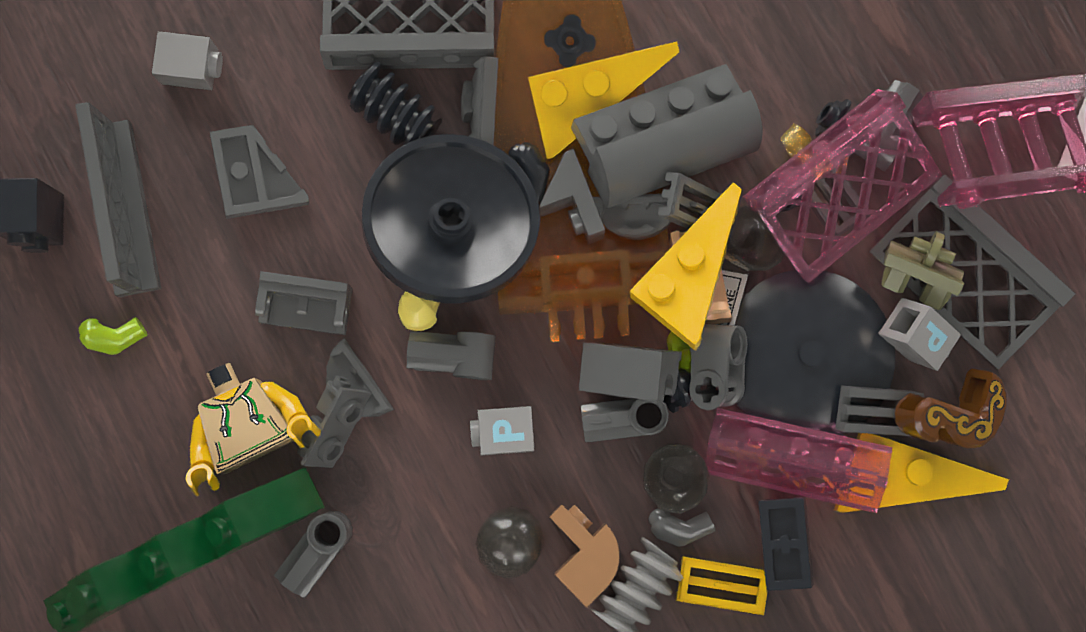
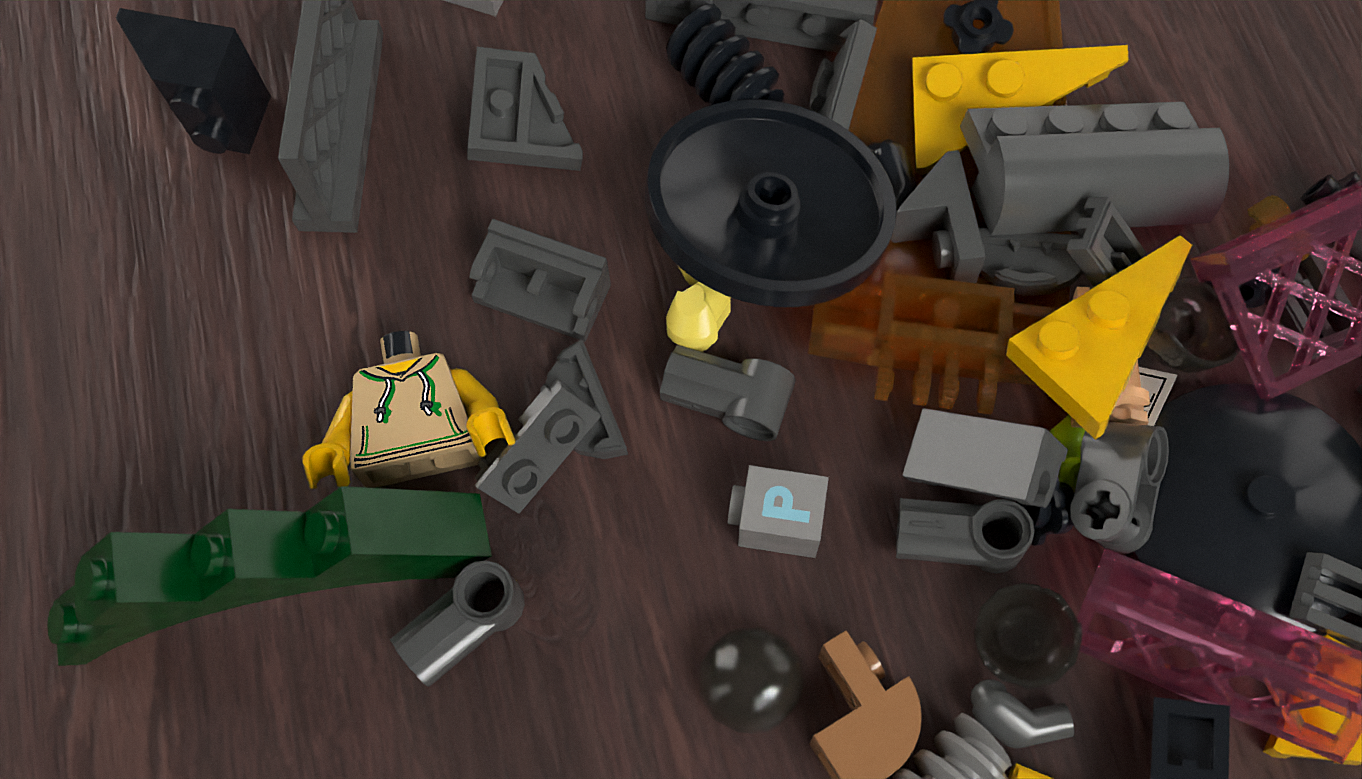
camera: 20 degrees right, 15 degrees down
(109, 340) = (267, 275): lime arm -> none

